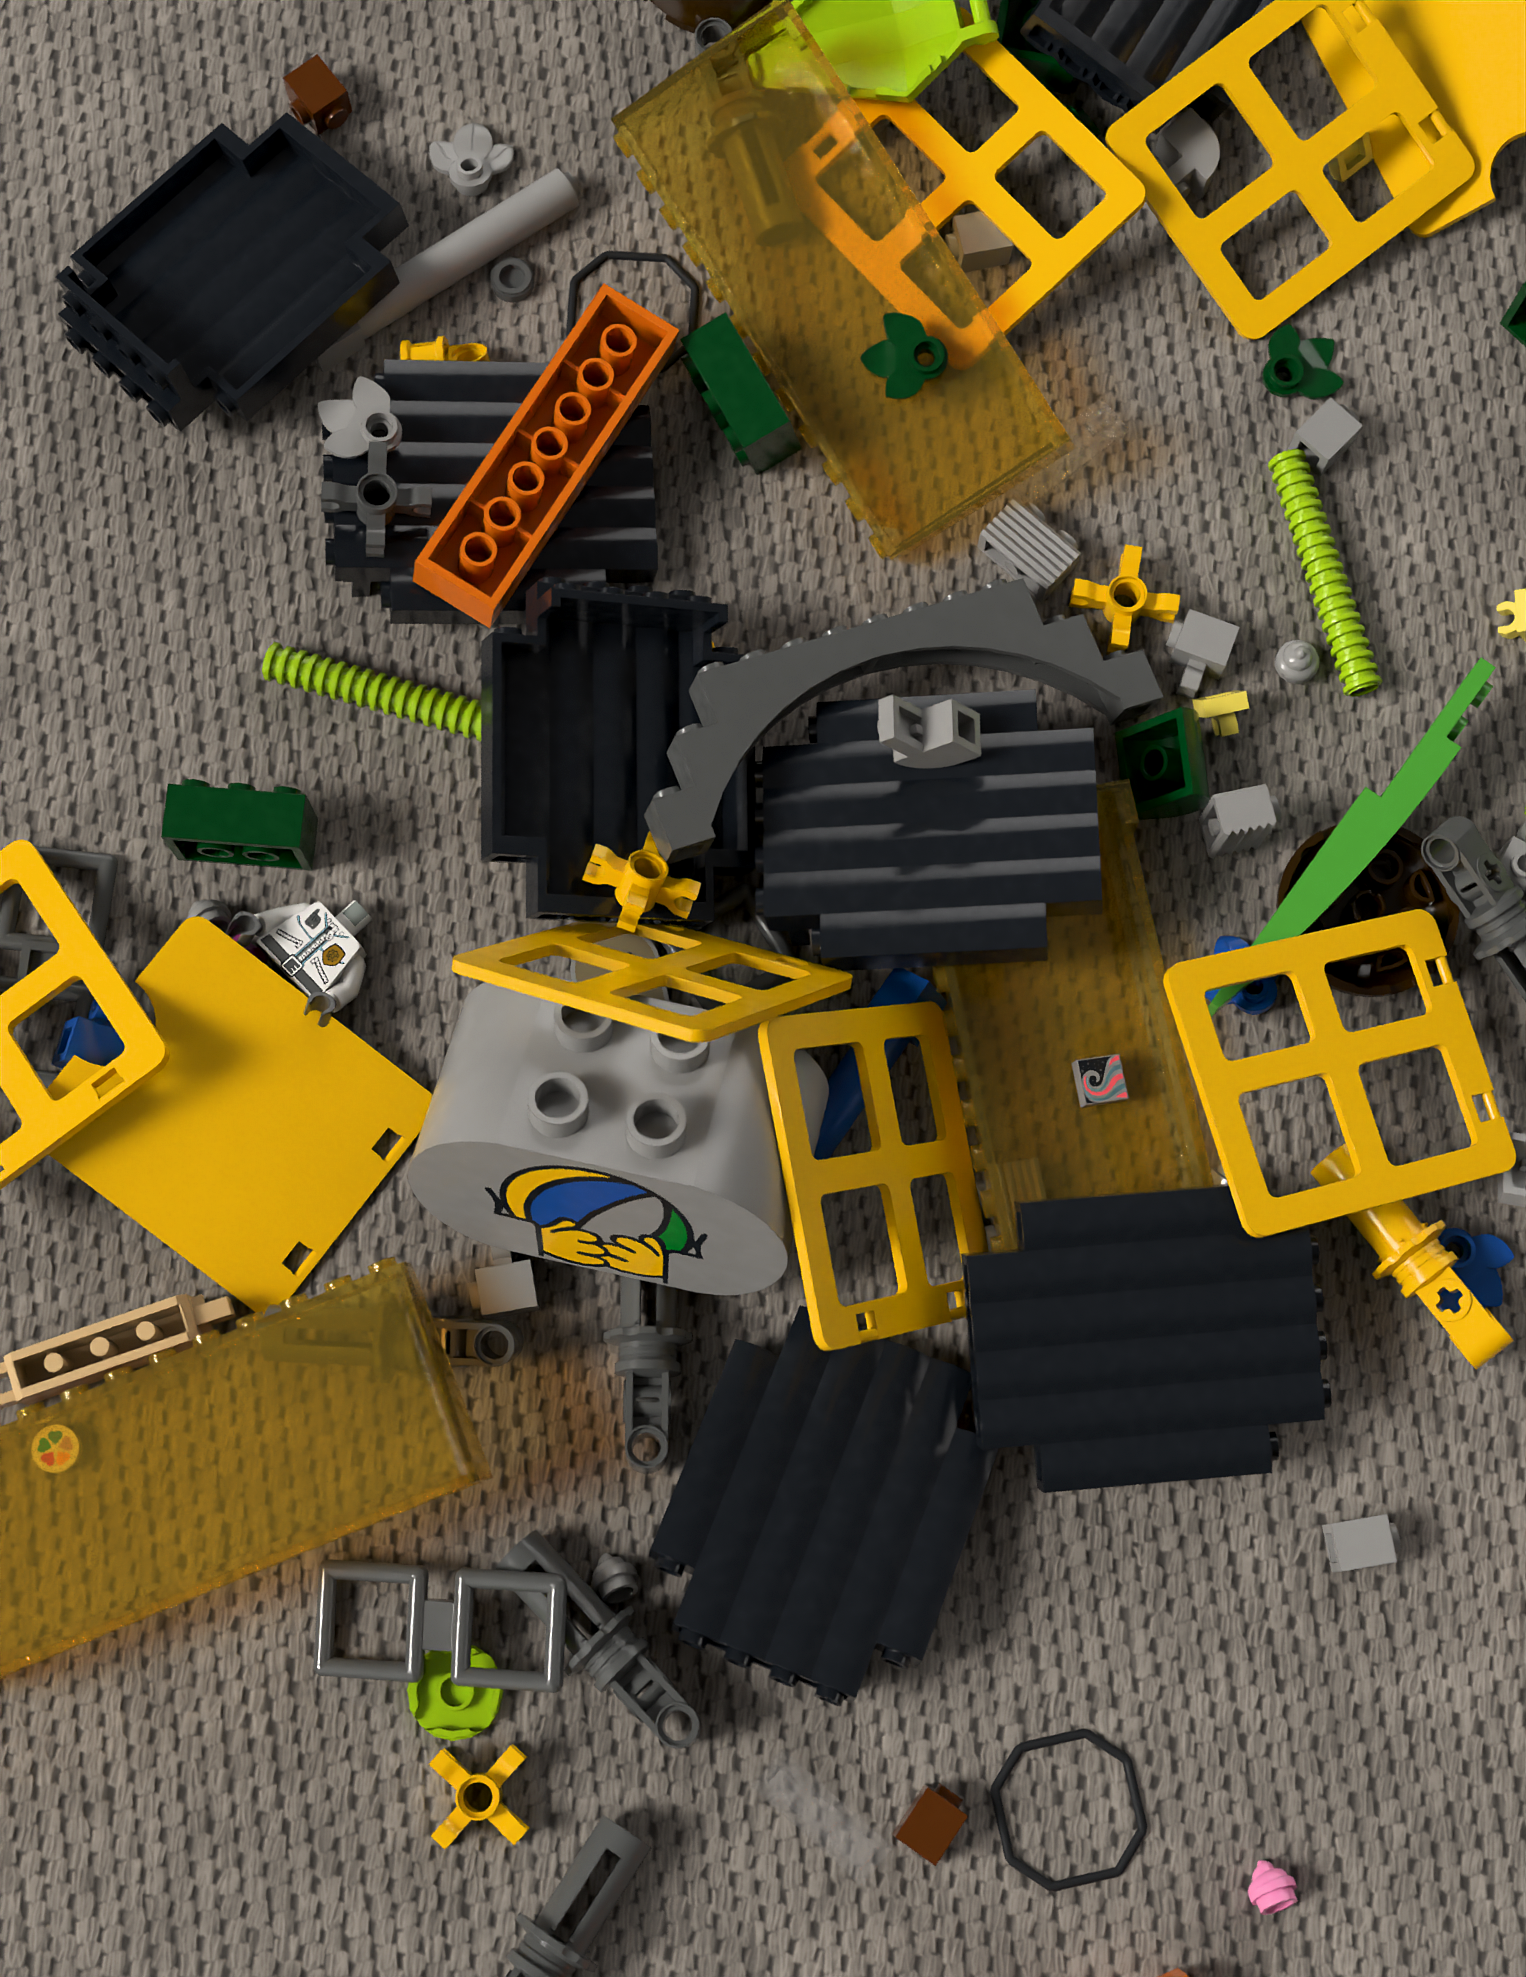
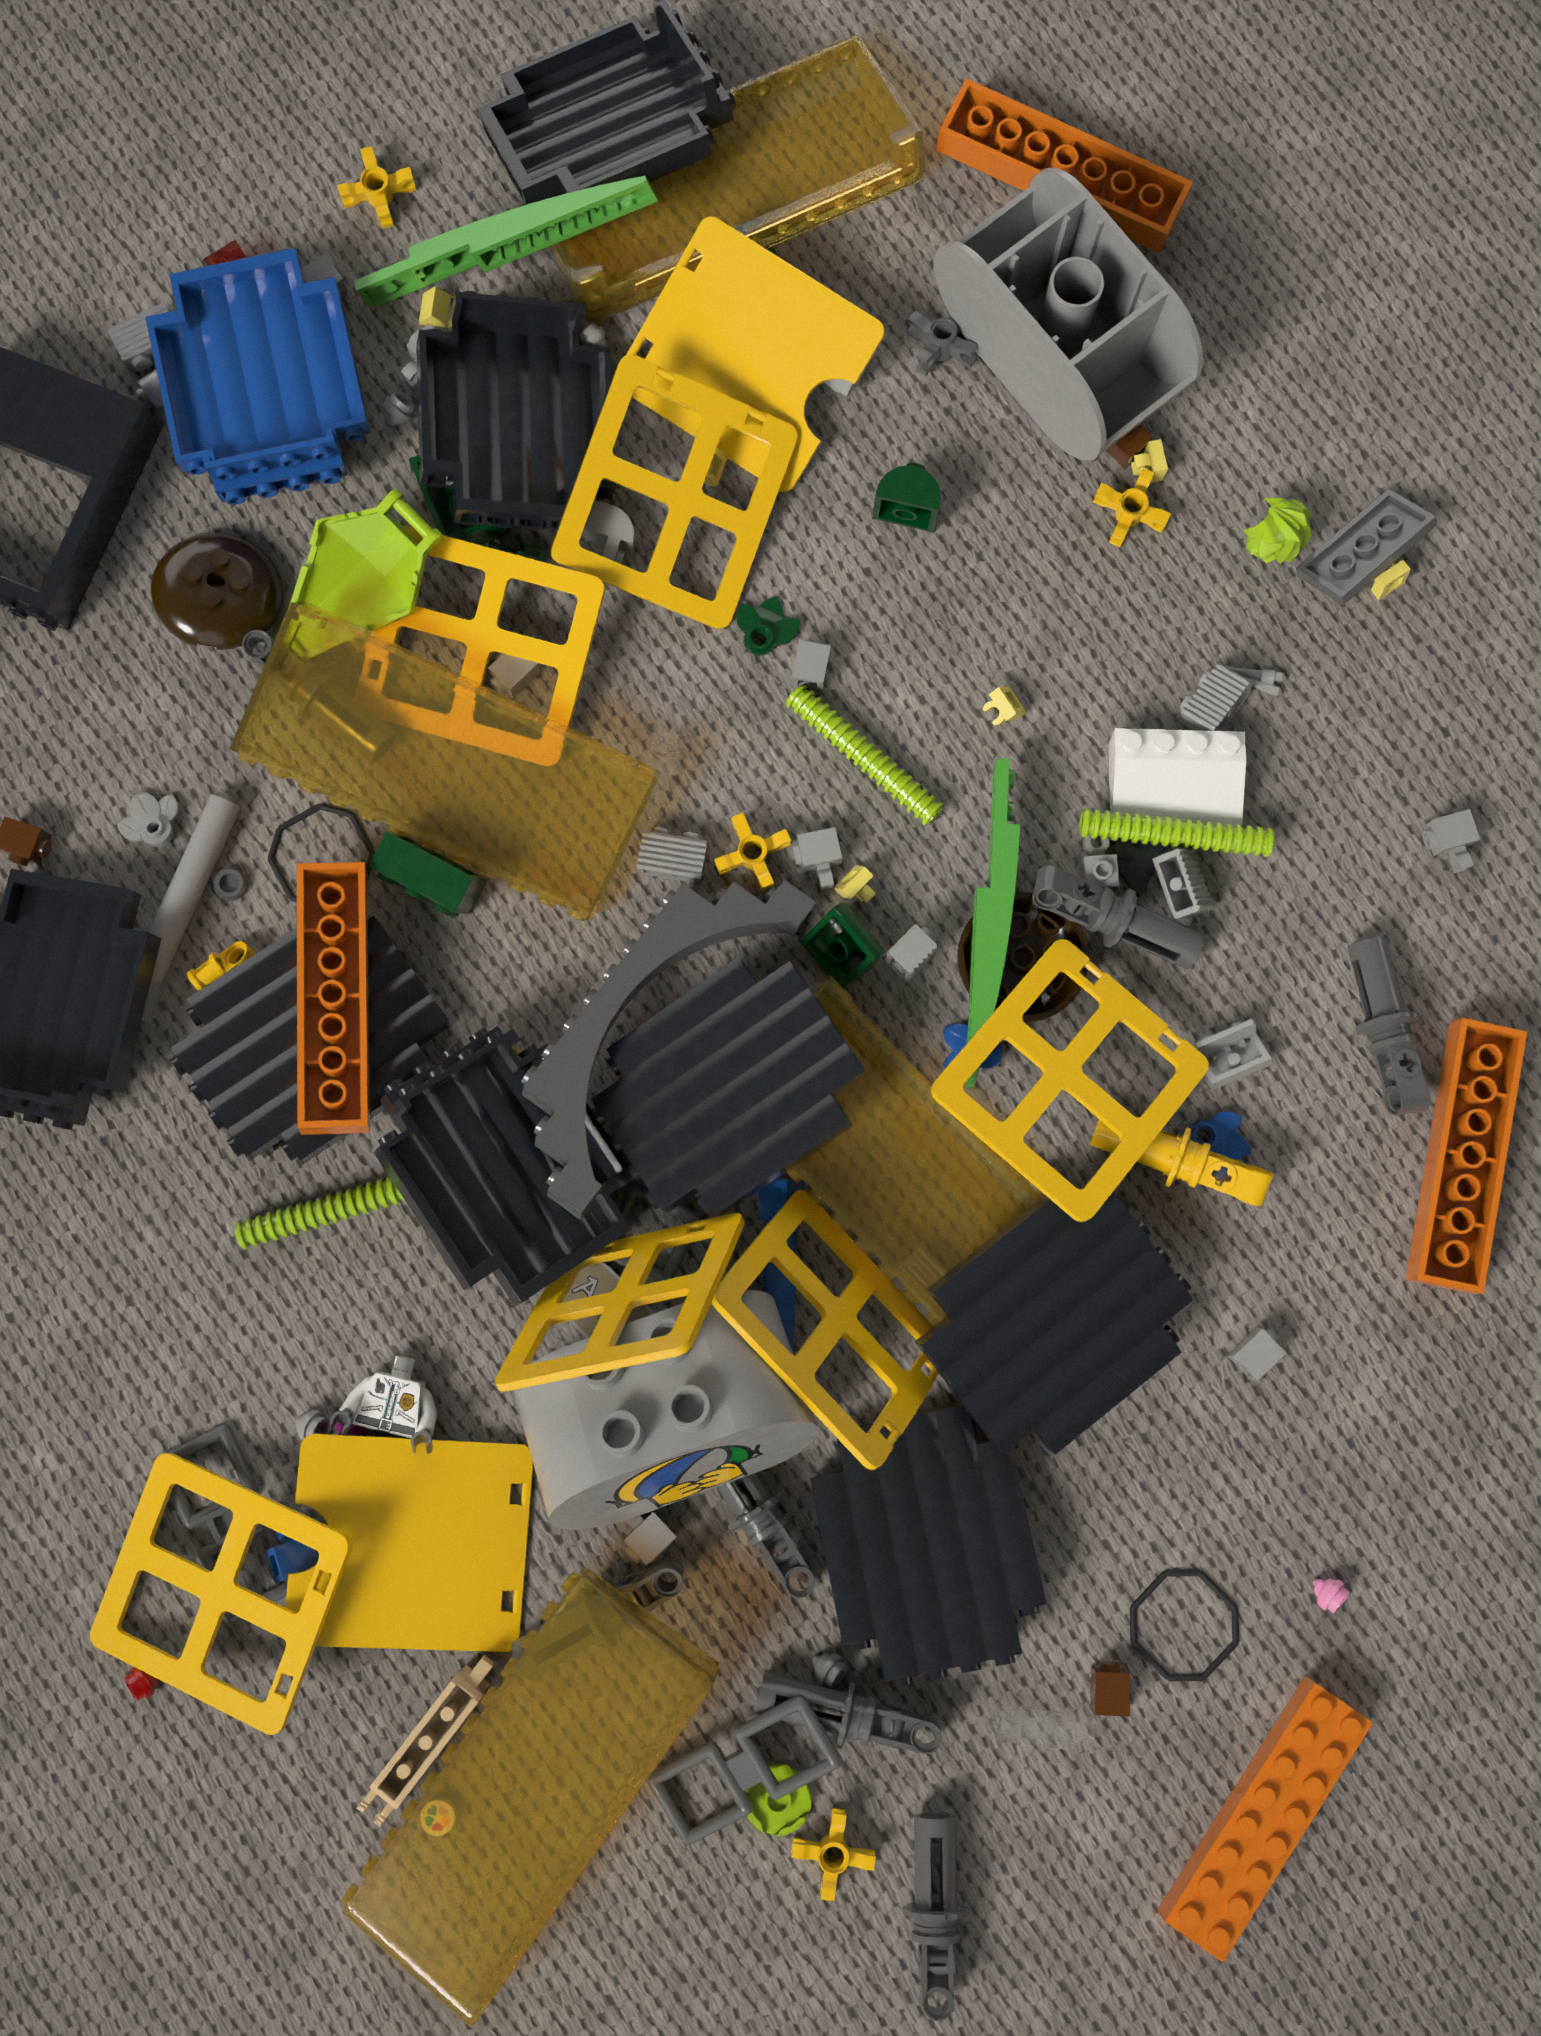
camera: 30 degrees left, 5 degrees up
(240, 825) = (293, 1356): dark green brick -> none
(356, 419) = (195, 1052): light grey plate -> none
(410, 501) = (226, 1109): dark grey pin -> none
(640, 882) = (573, 1240): yellow pin -> none
(898, 356) = (511, 783): dark green plate -> none
(929, 736) = (692, 1032): light grey brick -> none
(1099, 1080) = (928, 1171): tile -> none
(1297, 661) = (883, 823): light grey plate -> none

